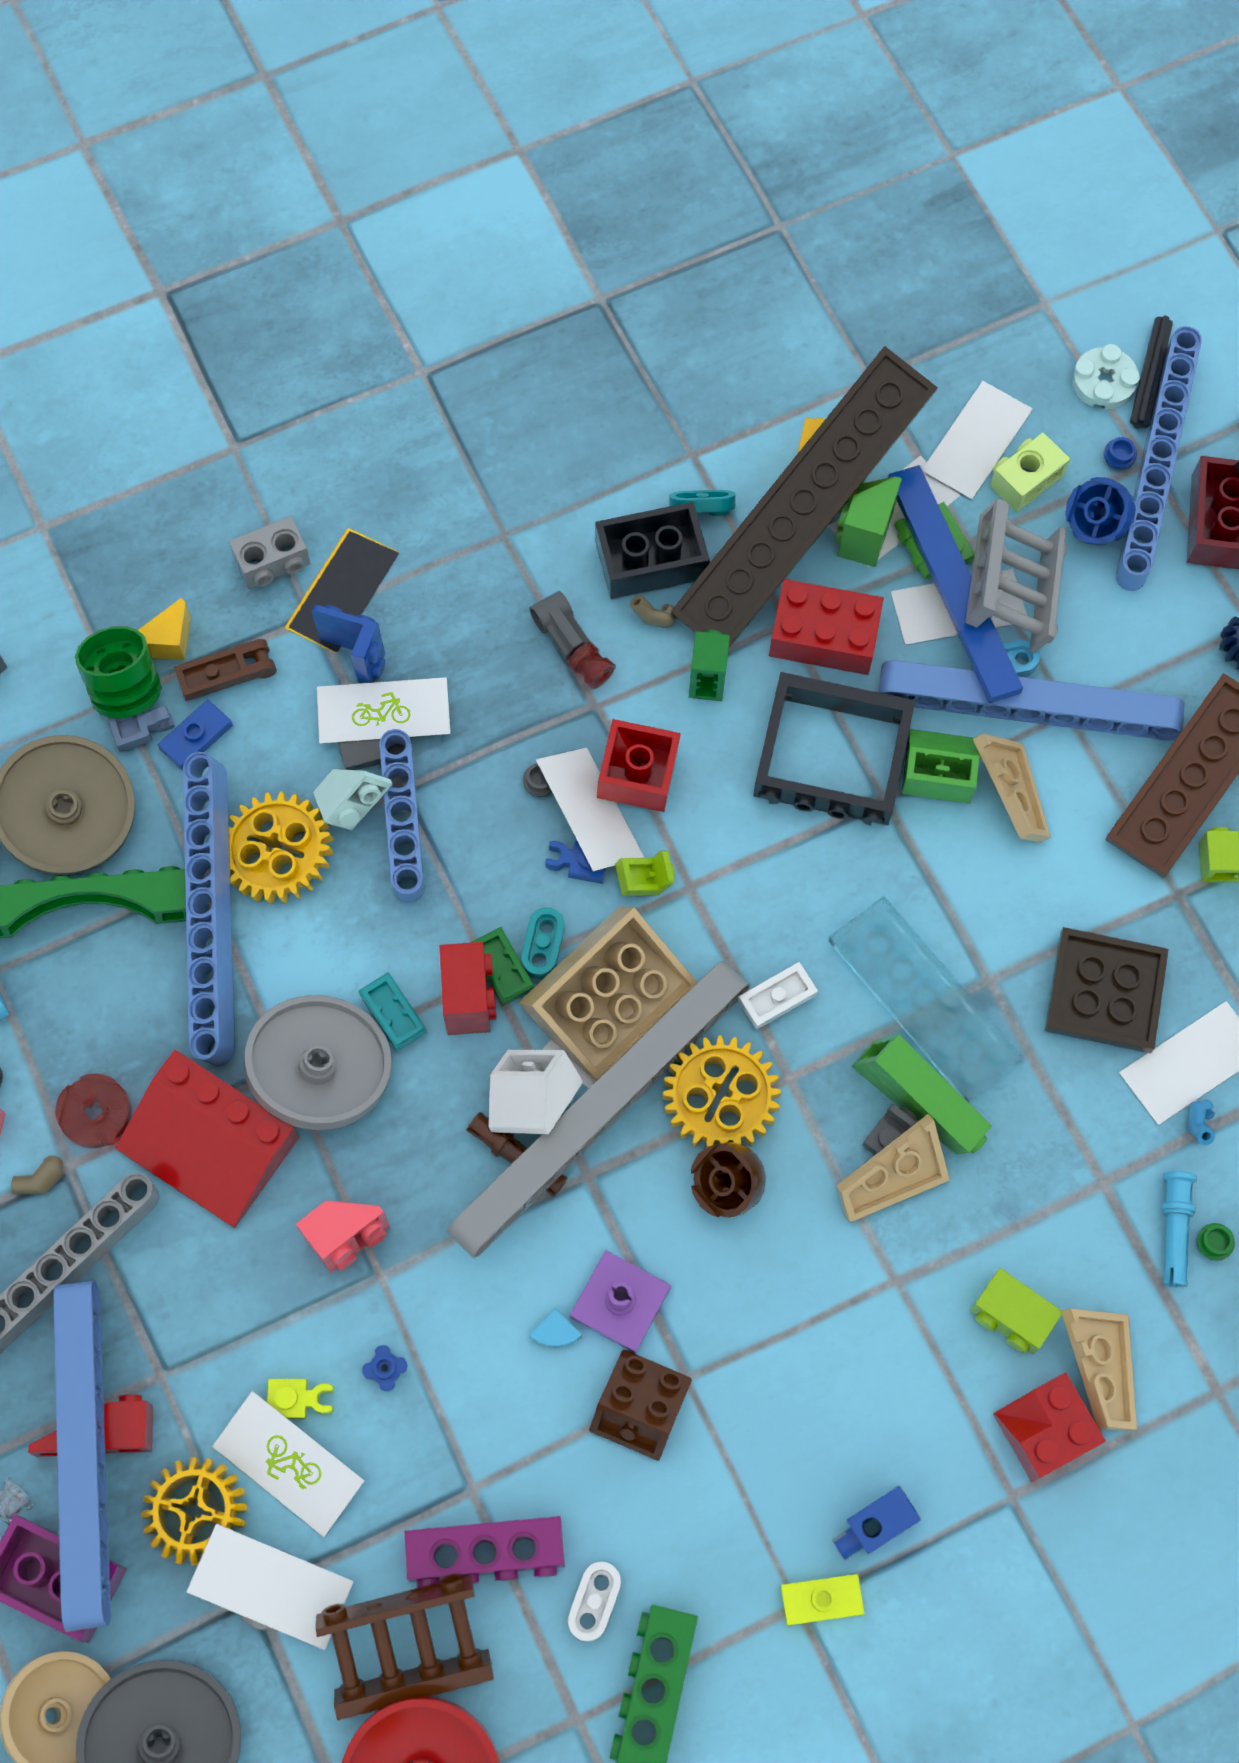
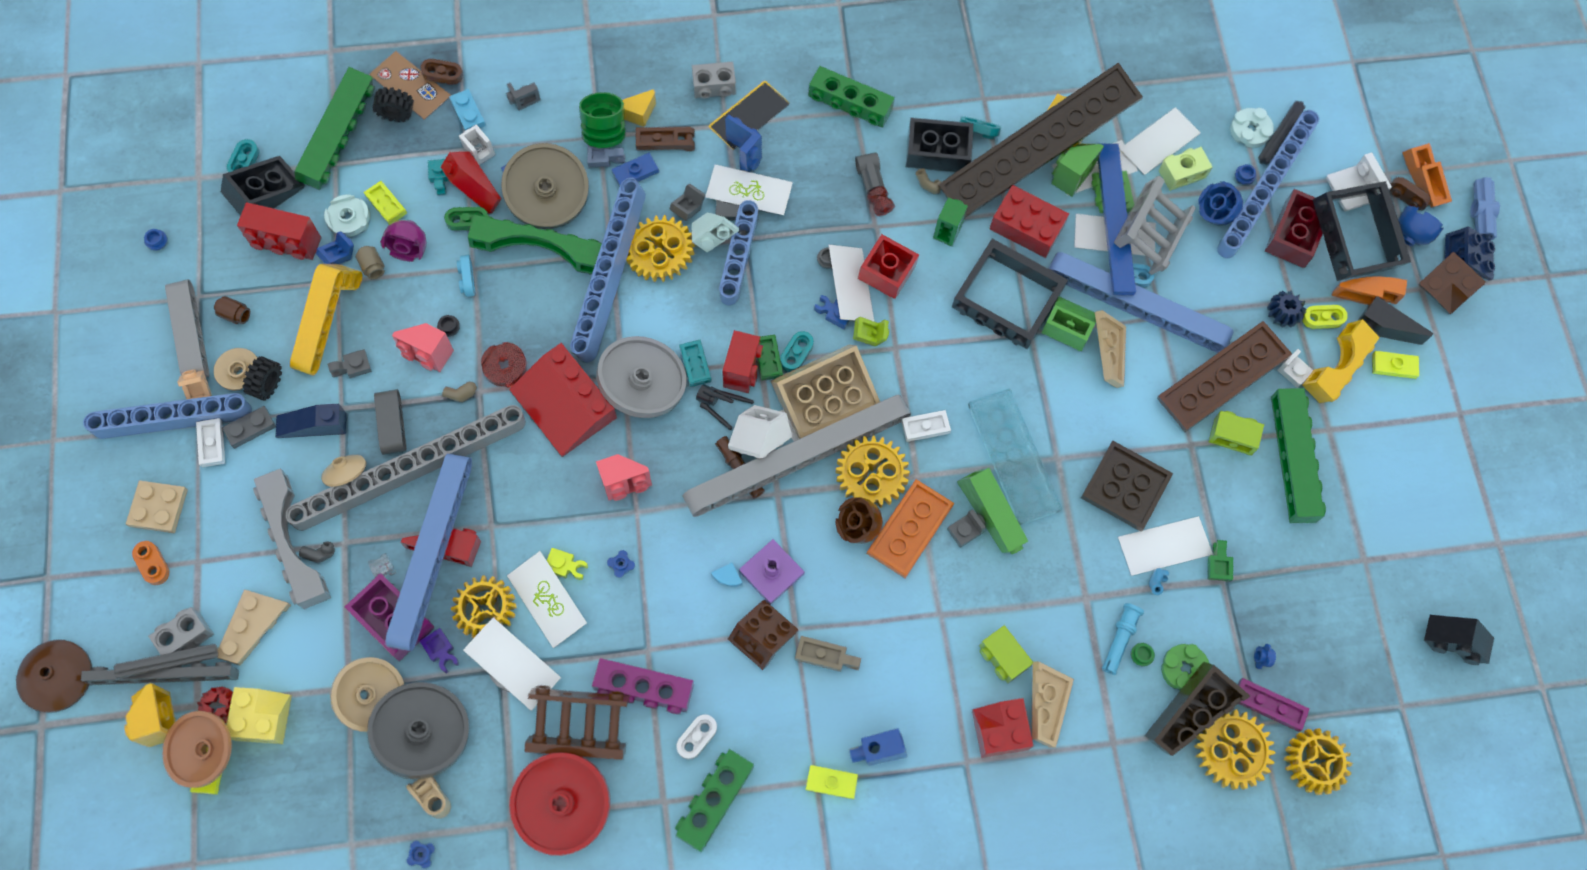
camera: 15 degrees right, 0 degrees up
(143, 1599) = (438, 647): none -> dark purple plate
(296, 761) = (688, 203): none -> dark grey bracket
(433, 1054) = (710, 395): none -> black plant
(478, 502) = (845, 87): none -> green brick
(746, 1405) = (825, 655): none -> dark tan plate
(807, 1163) = (910, 528): none -> orange tile
(895, 1173) = (961, 550): tan wing -> none

